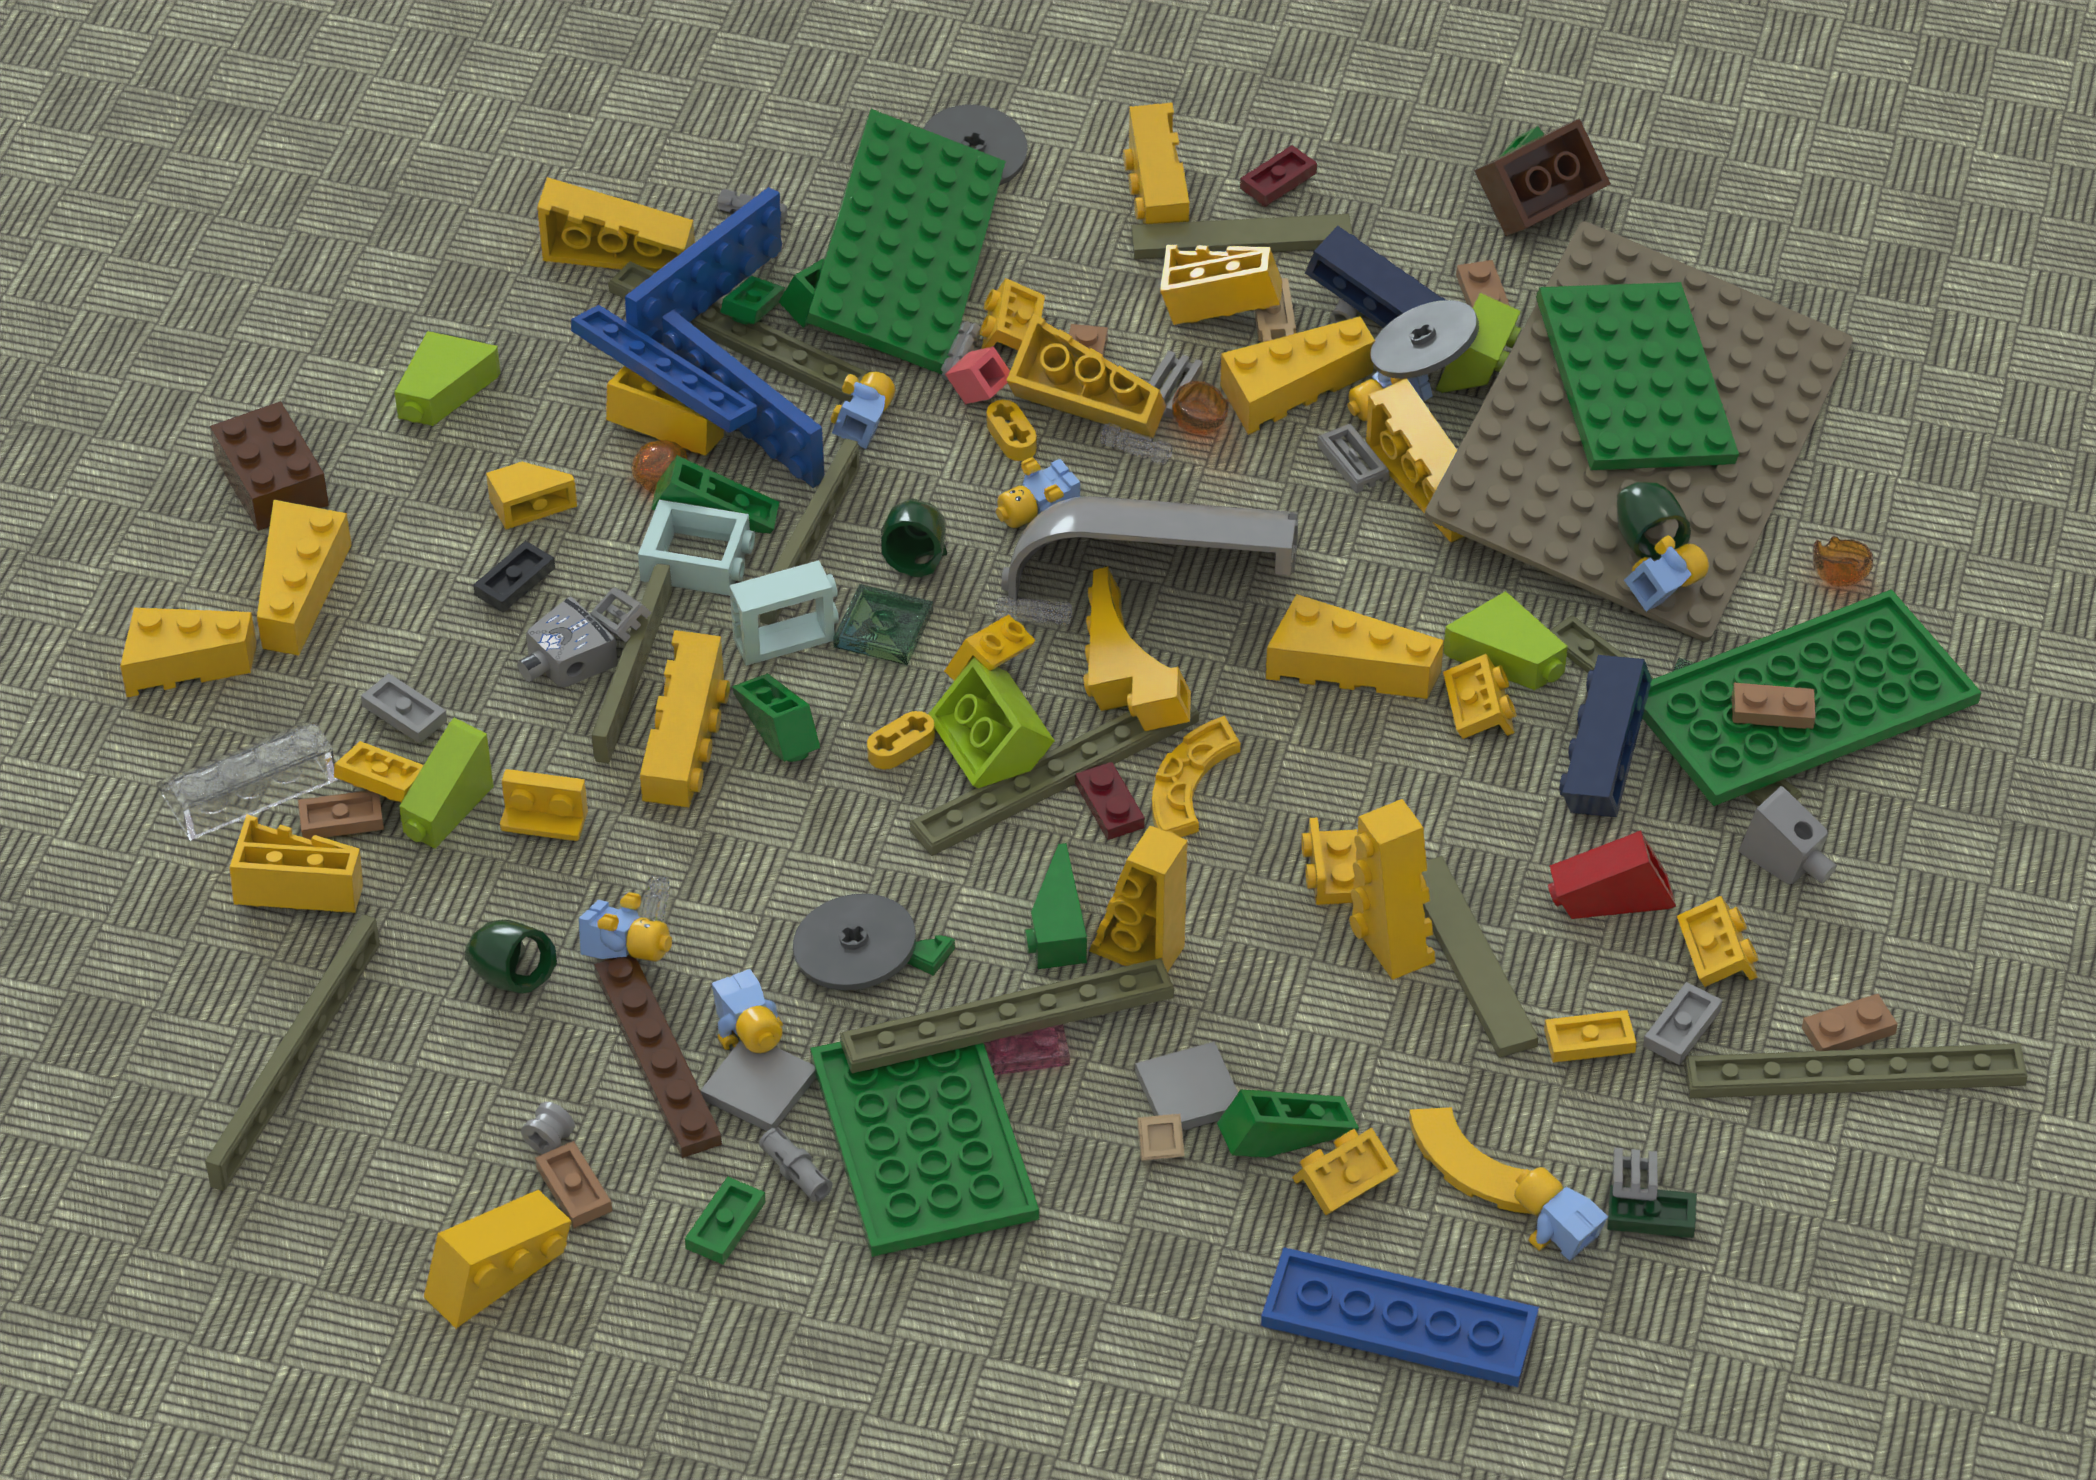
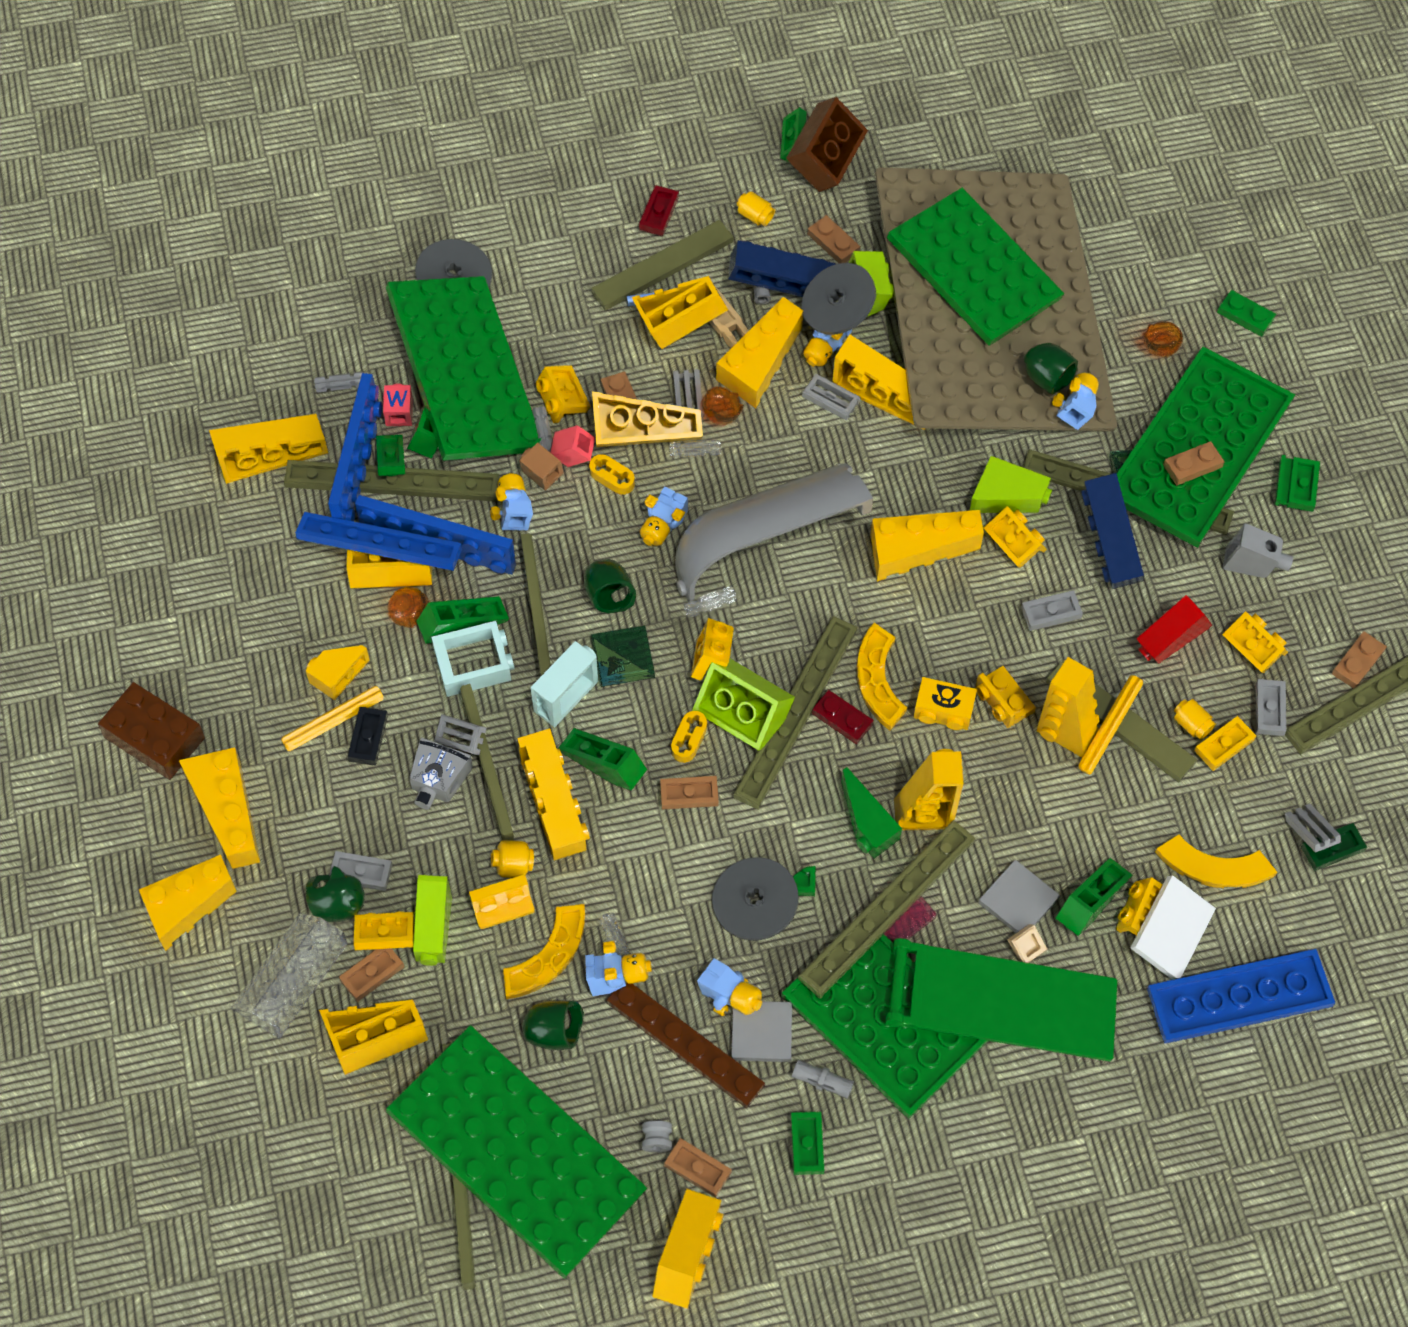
camera: 30 degrees left, 15 degrees up
(351, 711) = (338, 899): none -> dark green piece
(370, 1062) = (517, 1151): none -> green plate
(444, 377) = (223, 606): lime slope -> none
(484, 542) = (331, 718): none -> yellow axle
(550, 903) = (553, 958): none -> yellow tile
(593, 765) = (512, 858): none -> yellow head
(799, 250) = (398, 405): none -> coral brick
(855, 795) = (689, 792): none -> medium nougat plate
(927, 384) = (541, 466): none -> medium nougat brick
(1085, 1182) = (1005, 1001): none -> green flag
(1122, 671) = (795, 621): yellow arch -> none
(1155, 166) = (584, 242): yellow wedge -> none
(1248, 837) = (945, 704): none -> yellow brick
(1363, 1200) = (1173, 928): none -> white tile
(1403, 218) = (755, 208): none -> yellow brick
(1447, 947) = (1110, 724): none -> yellow axle
(1466, 797) = (1051, 610): none -> light grey plate
(1562, 1213) = (1290, 877): light blue piece -> none
(1566, 989) = (1194, 718): none -> yellow brick
(1911, 793) = (1297, 483): none -> green plate
(1987, 582) = (1246, 313): none -> green plate

